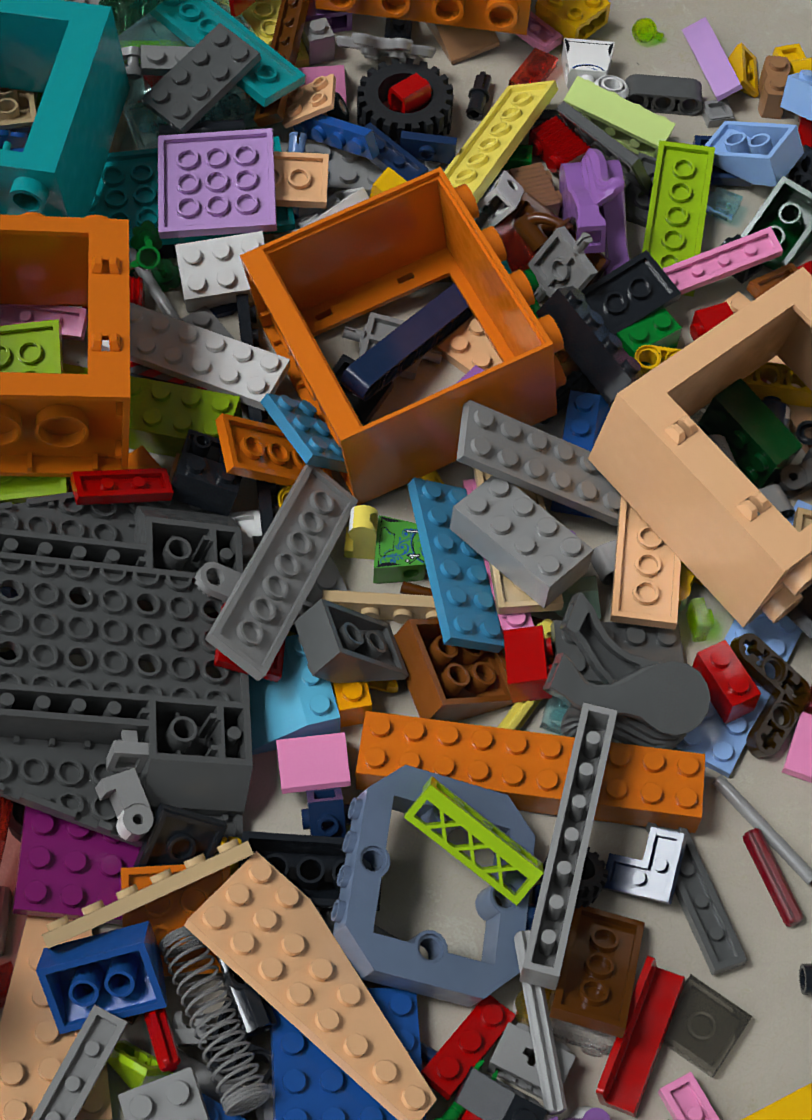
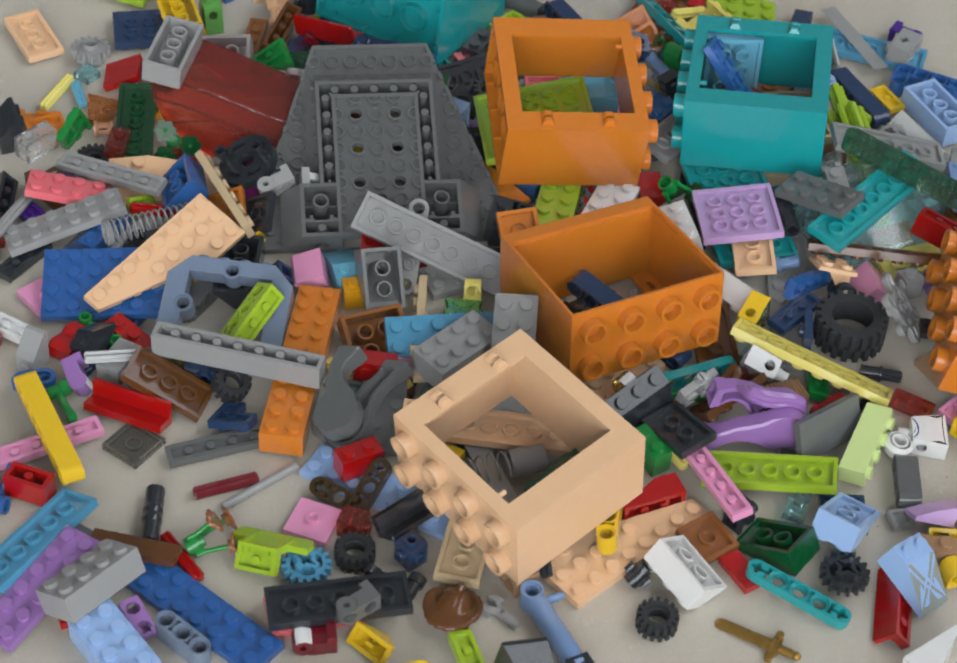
camera: 90 degrees right, 15 degrees down
(60, 886) = (240, 153): none -> black piece
(121, 486) = (486, 174): red plate -> none
(410, 94) = (850, 316): red brick -> none

